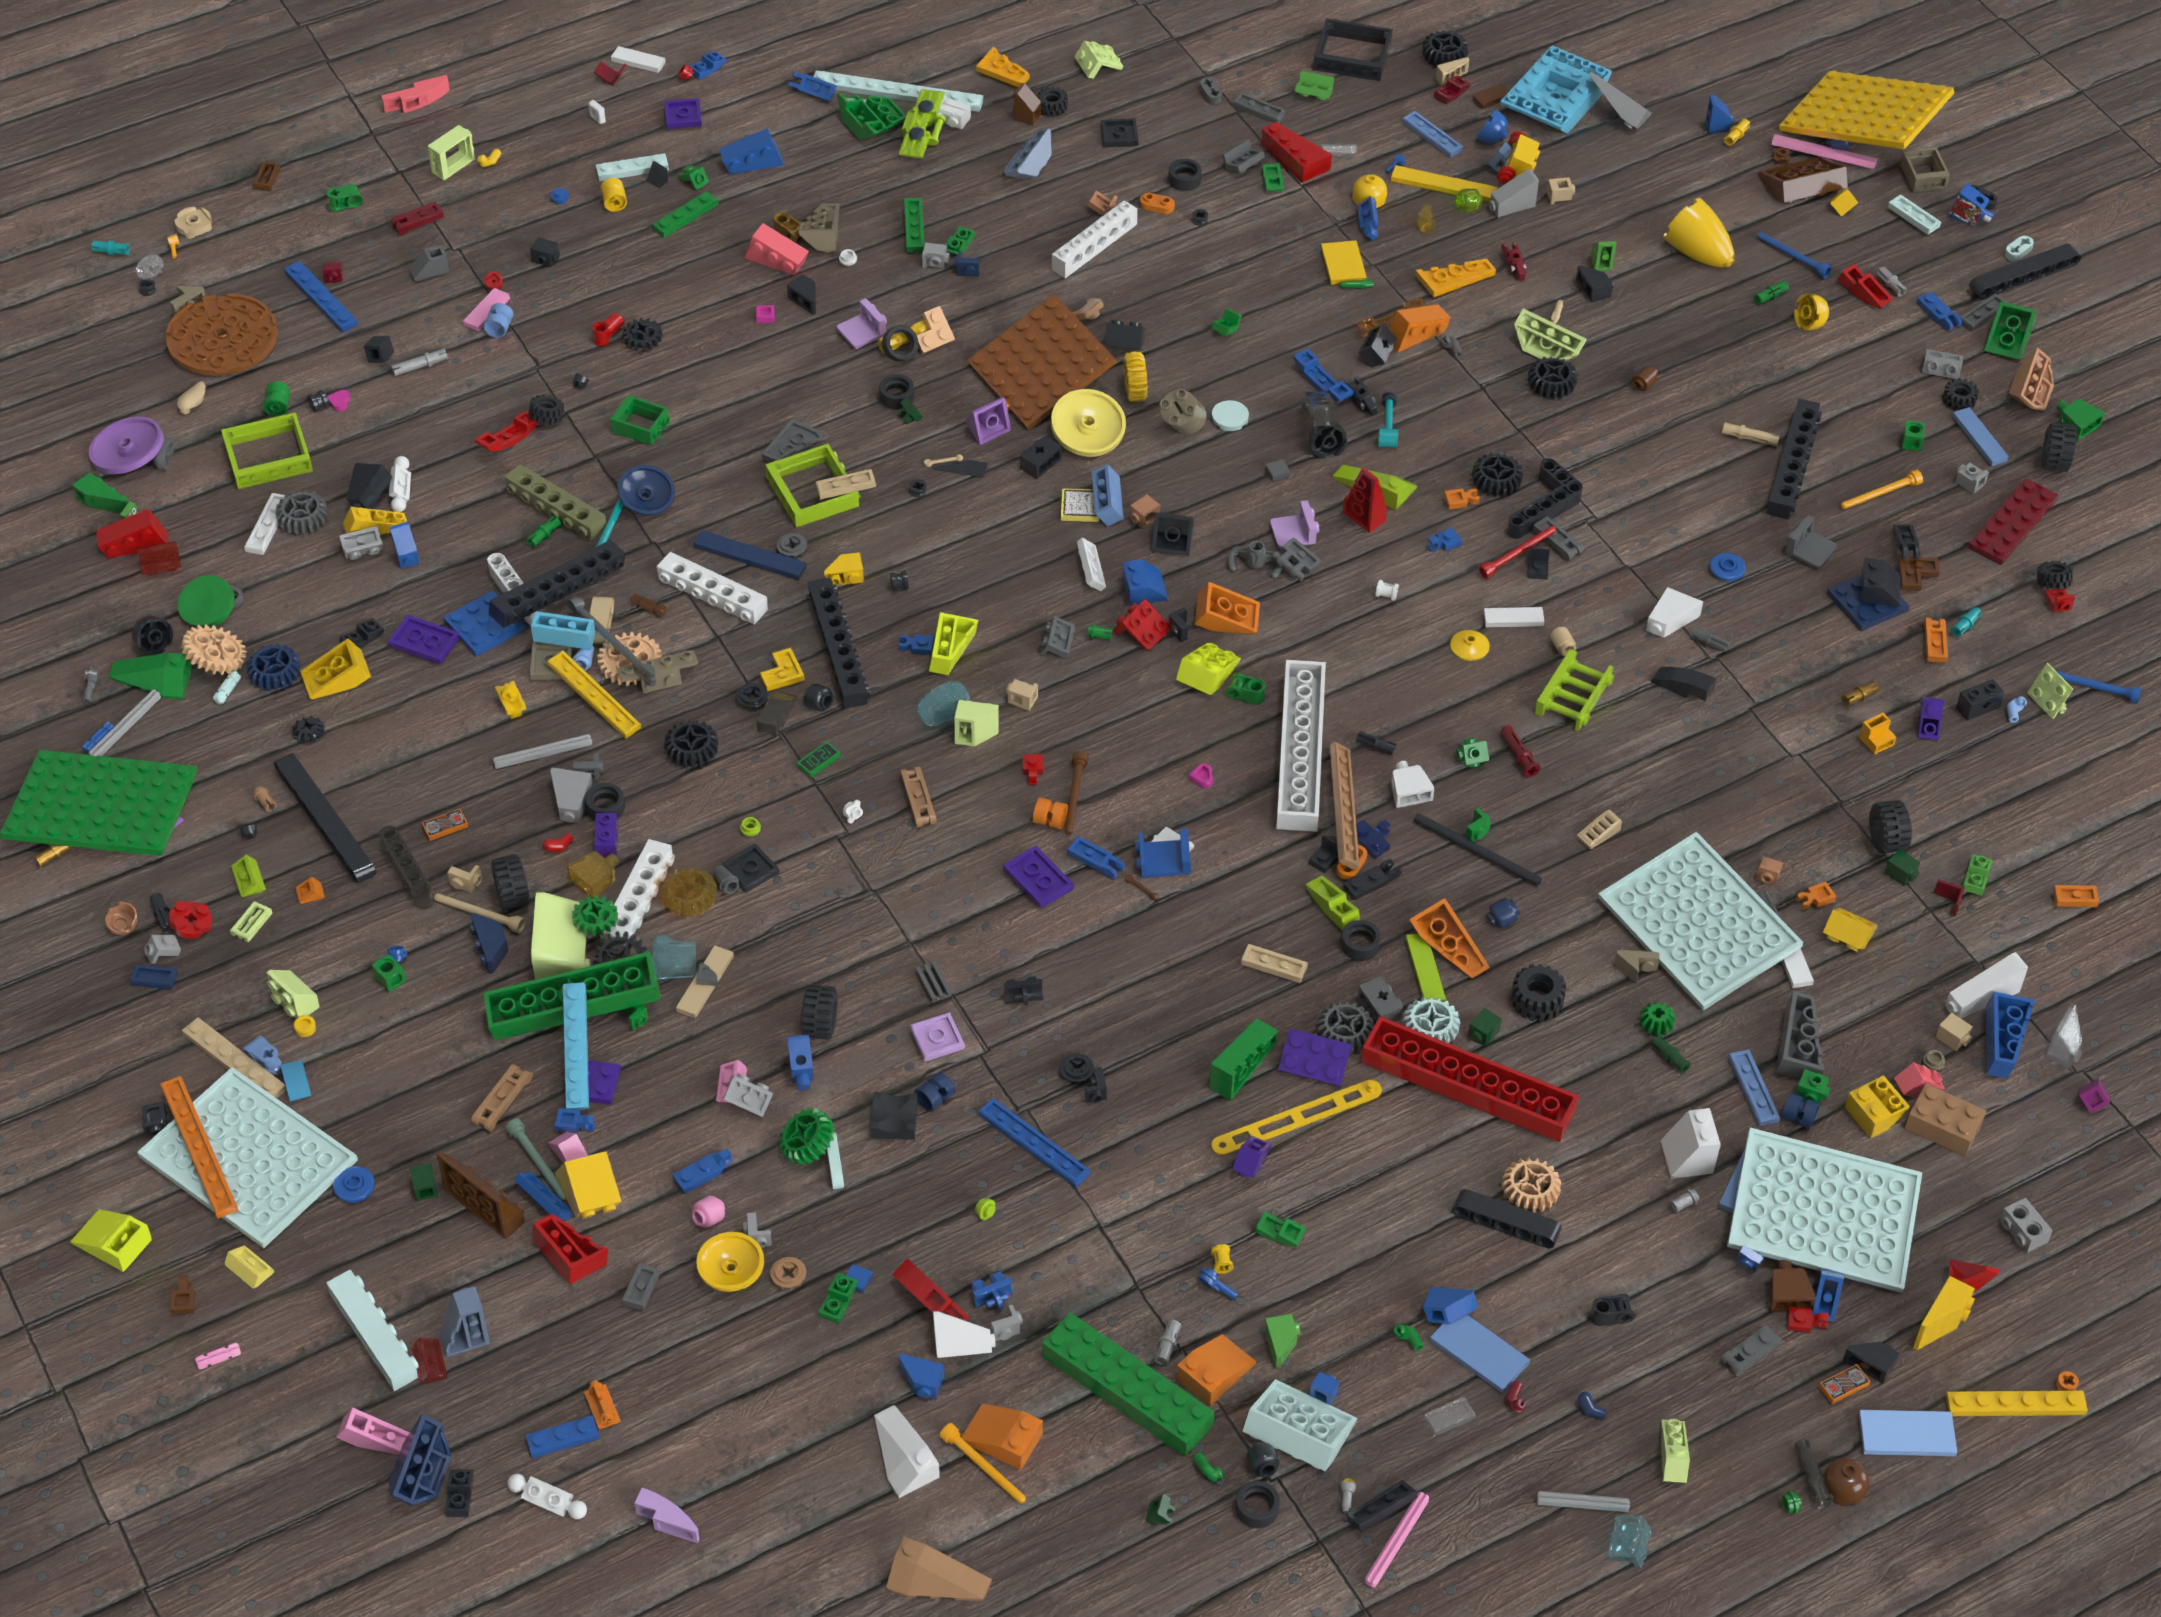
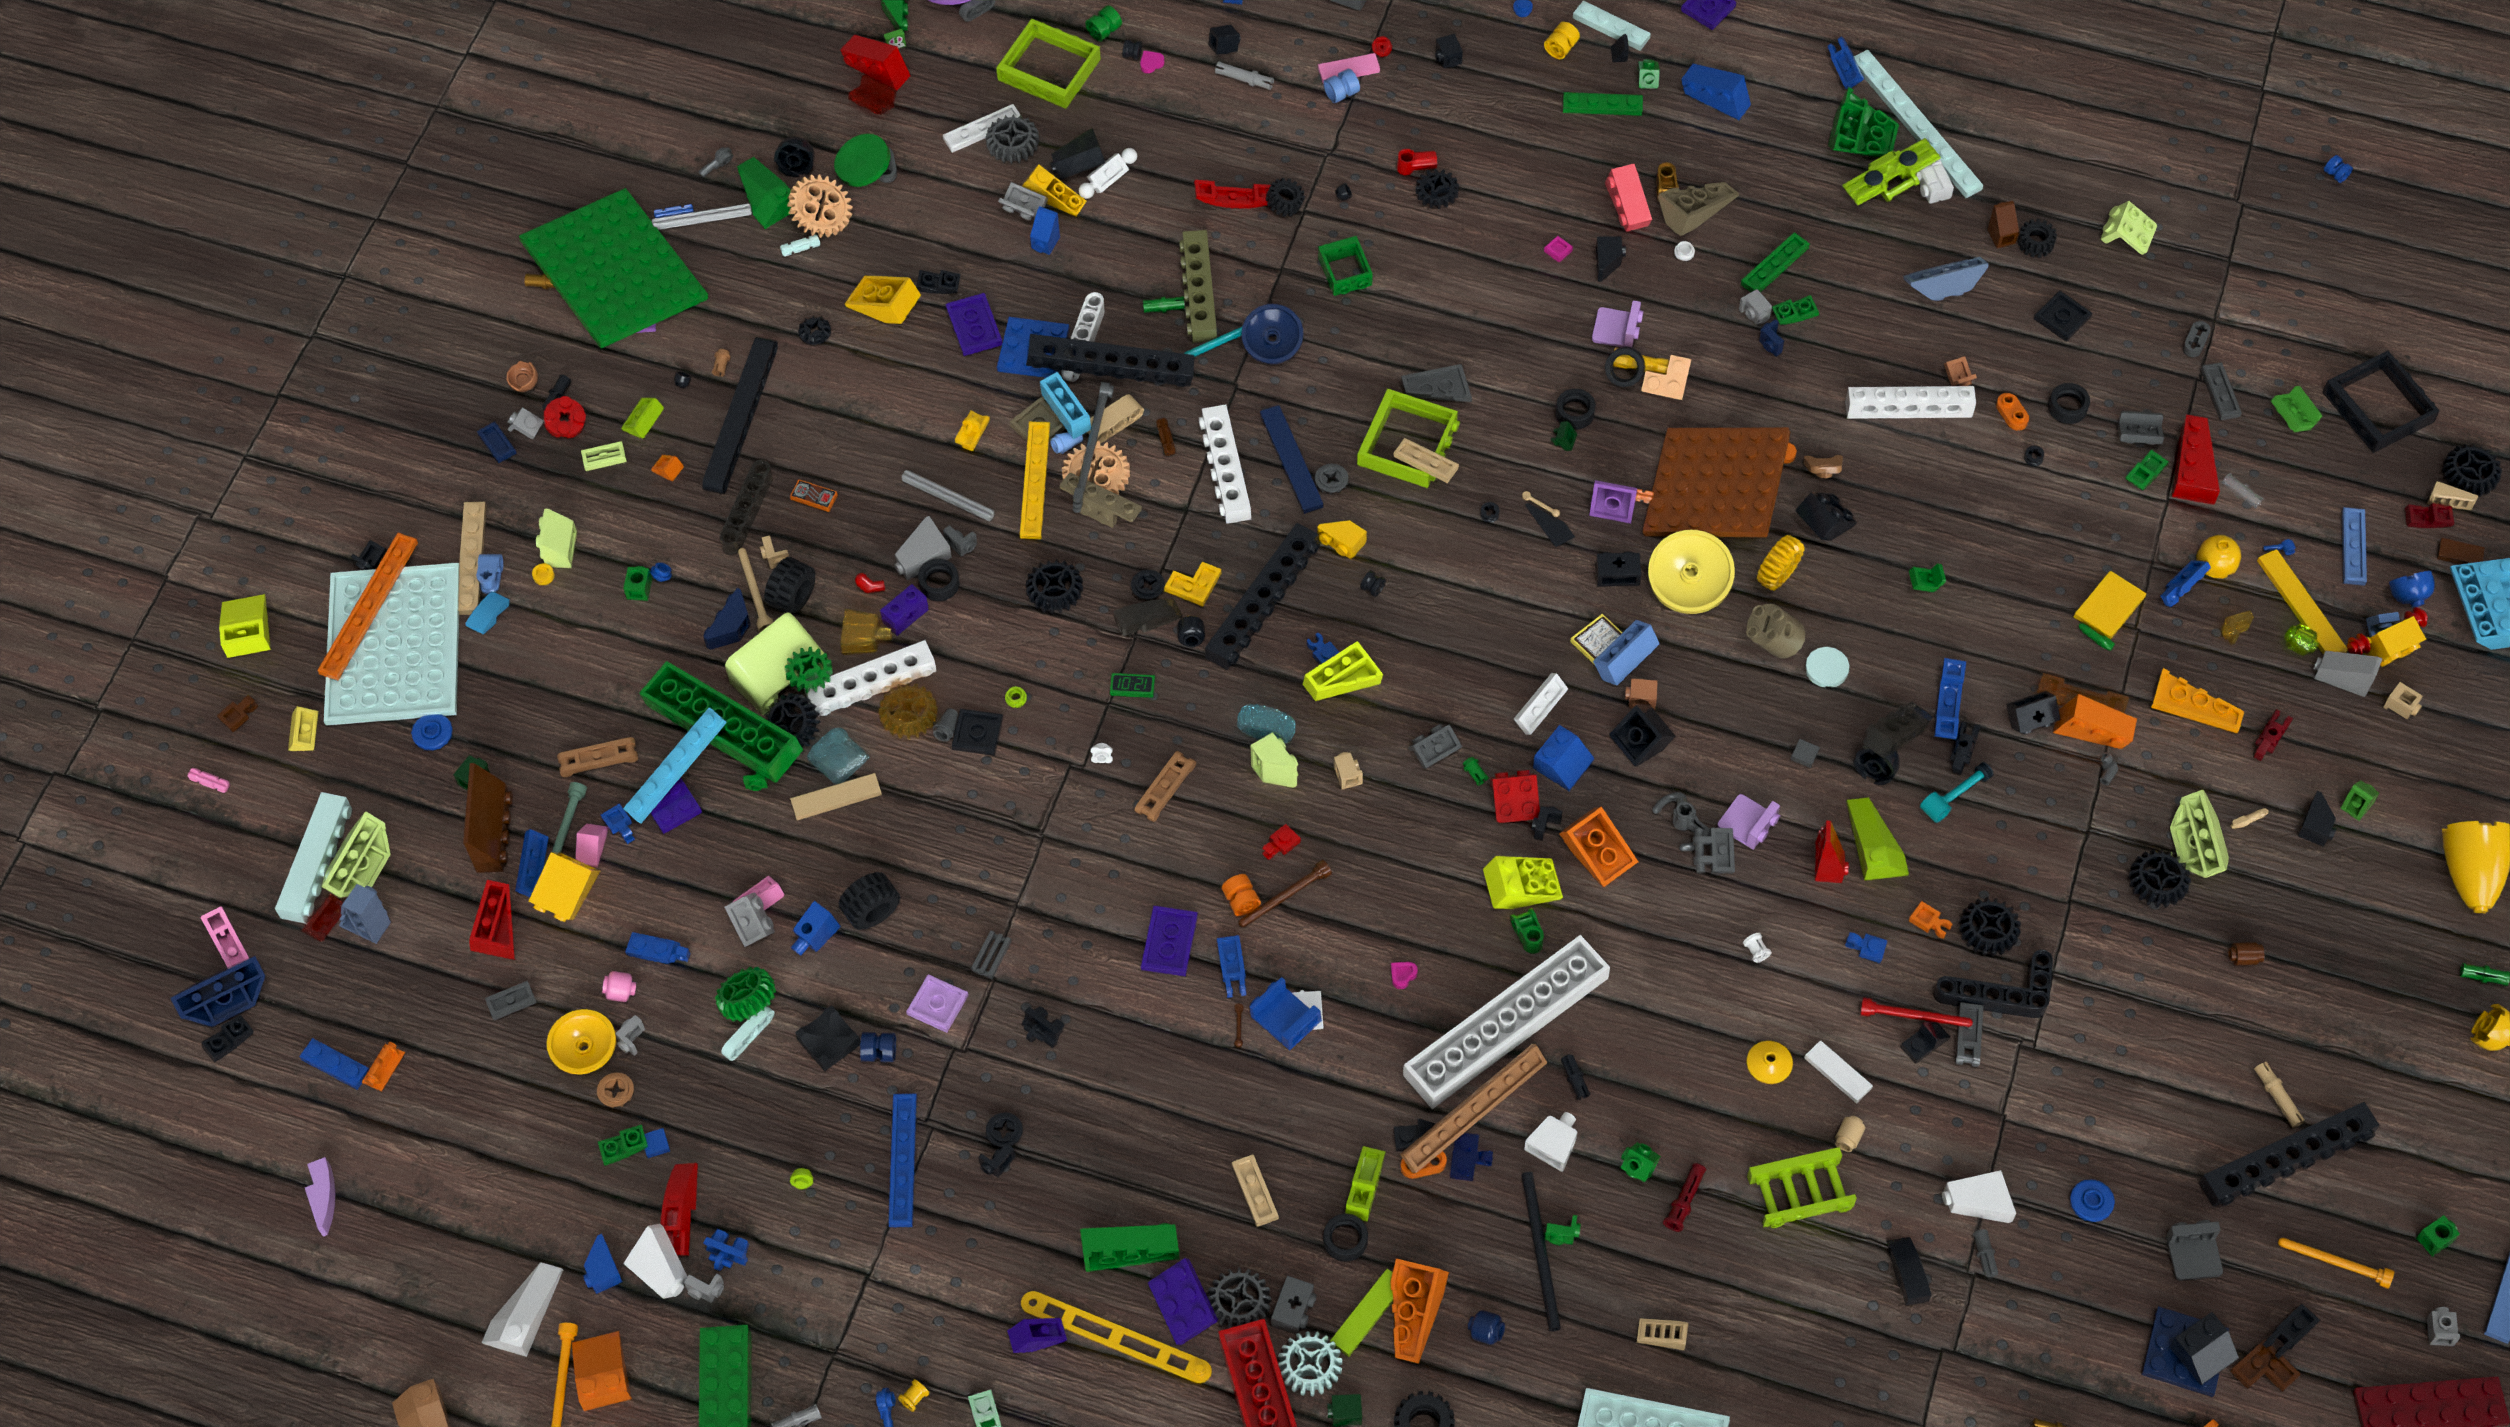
camera: 50 degrees right, 10 degrees up
(275, 672) = (835, 261): dark blue gear -> none
(407, 1298) = (359, 857): none -> yellowish green wedge
(547, 1496) = (272, 1099): white plate -> none
(706, 976) = (837, 793): dark grey tile -> none
(1001, 68) = (2031, 171): light orange wing -> none
(1371, 880) = (1421, 1193): black hinge -> none

